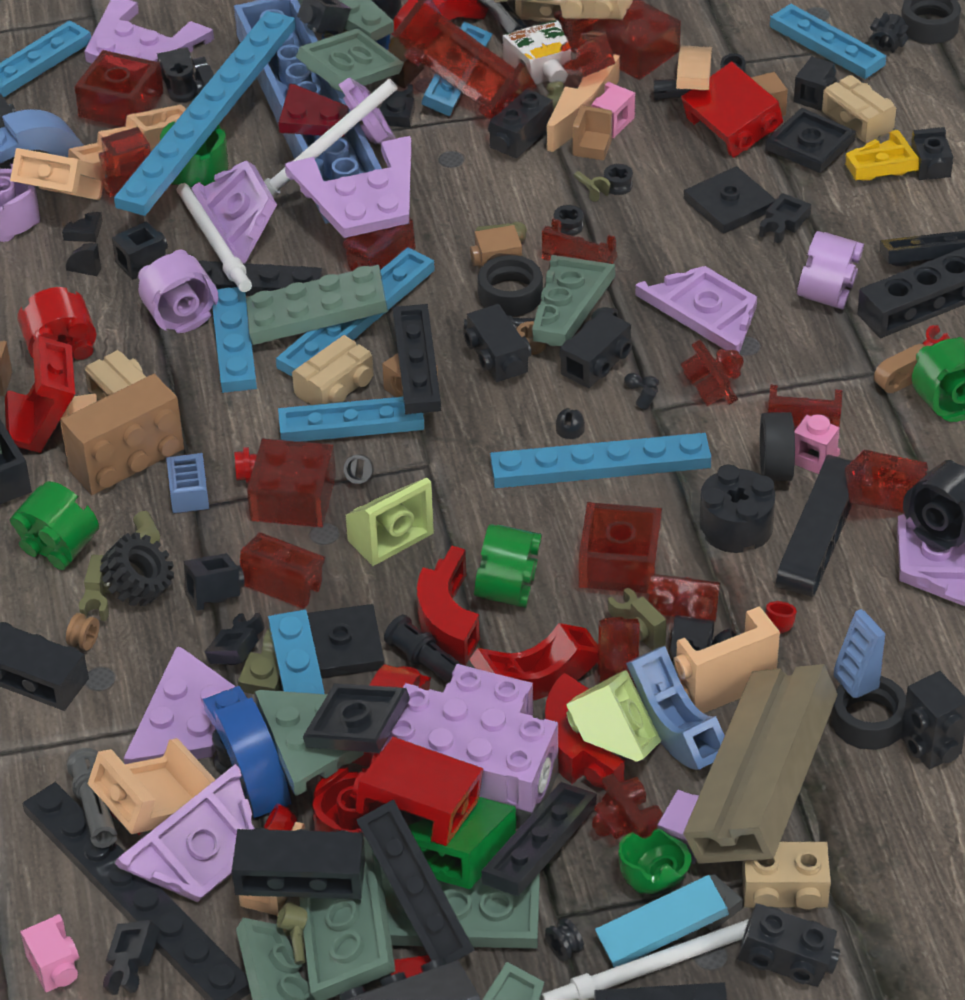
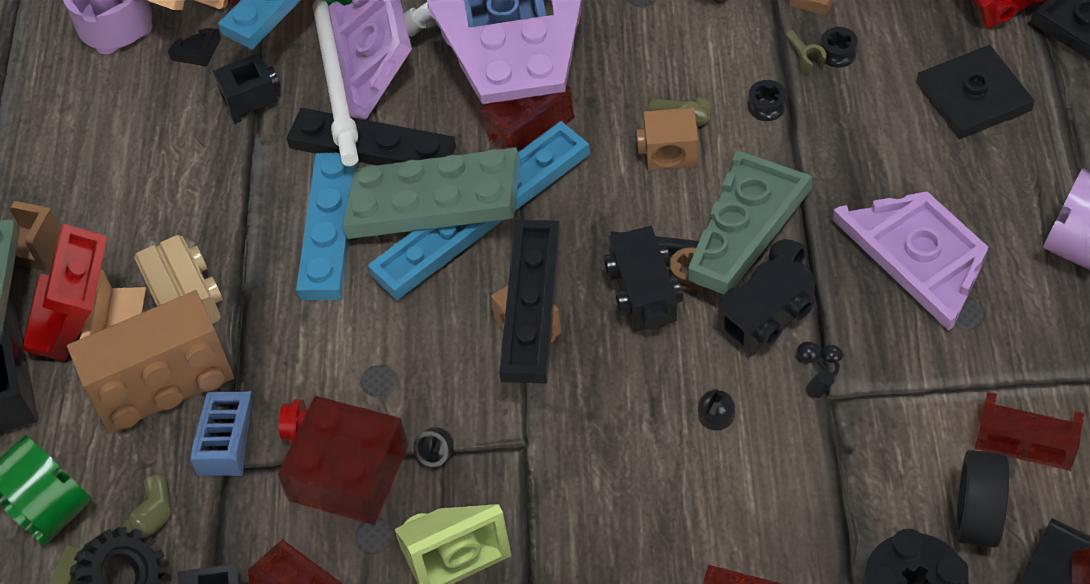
camera: 15 degrees right, 10 degrees up
(60, 317) = (118, 191): red brick -> none
(85, 260) = (183, 94): black tile -> none
(177, 292) = (269, 157): lavender brick -> none
(333, 373) = (433, 297): tan brick -> none
(347, 419) = (428, 367): dark azure plate -> none
(510, 268) = (673, 164): black tyre -> none
(575, 247) = (769, 144): clear red hinge -> none
(600, 460) = (747, 473): dark azure plate -> none
(717, 385) = (917, 377): clear red hips -> none
(783, 215) = (1041, 123): black plate -> none
(816, 434) = (1043, 488): bright pink brick -> none

